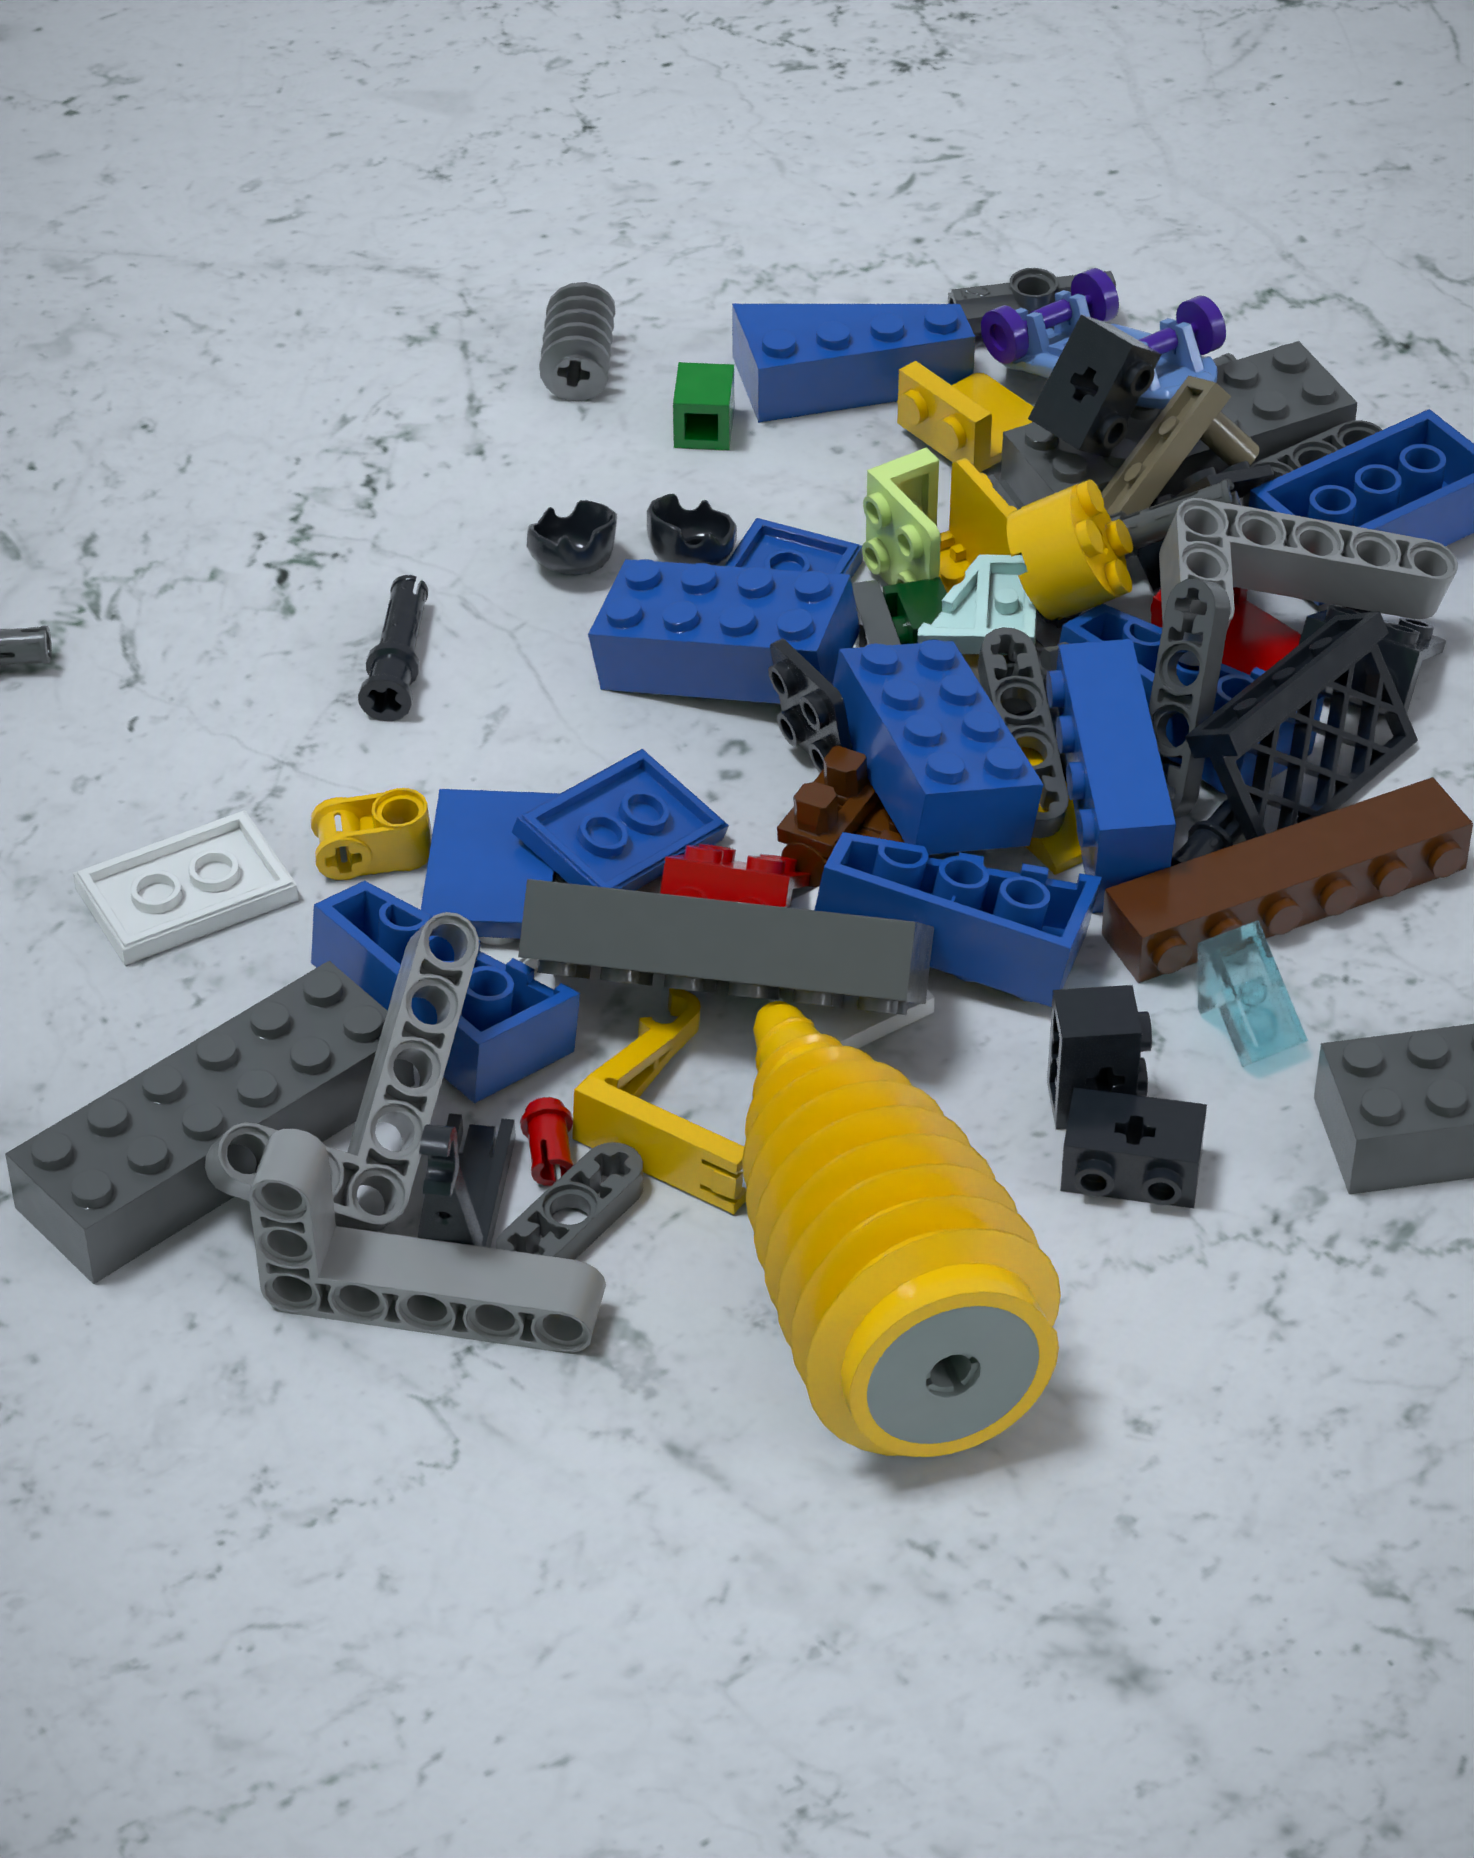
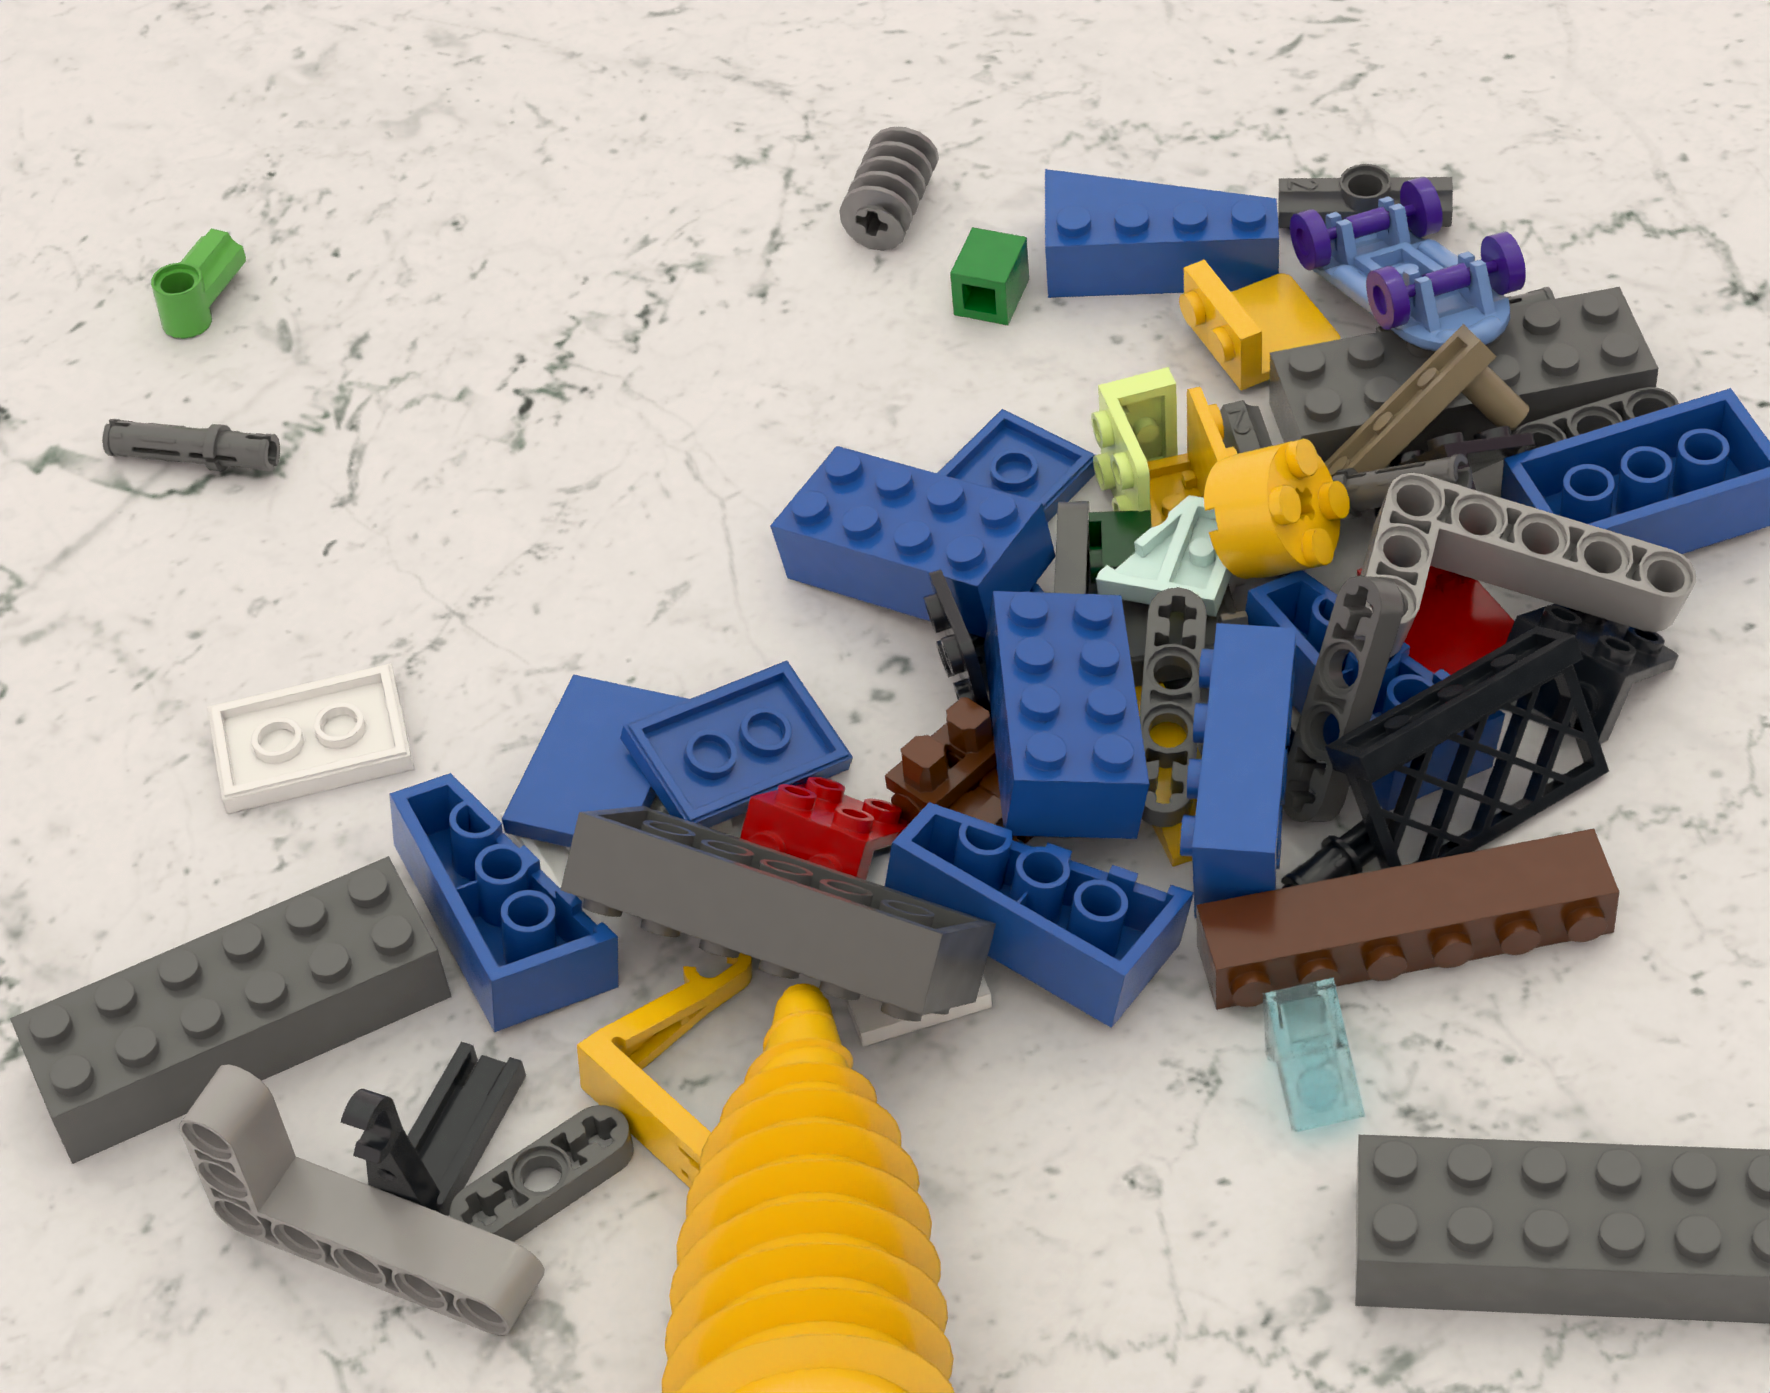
camera: 20 degrees right, 5 degrees up
(379, 833) = (501, 709): yellow piece -> none
(384, 1096) = (378, 1025): light grey beam -> none
(393, 662) = (588, 521): black pin -> none
(547, 1128) = (552, 1073): red pin -> none
(574, 542) = (807, 411): black hair -> none
(689, 535) = (922, 420): black hair -> none
(1095, 386) = (1358, 324): black brick -> none
(1096, 1045) = (1119, 1104): black brick -> none
(1133, 1147) = (1132, 1214): black brick -> none

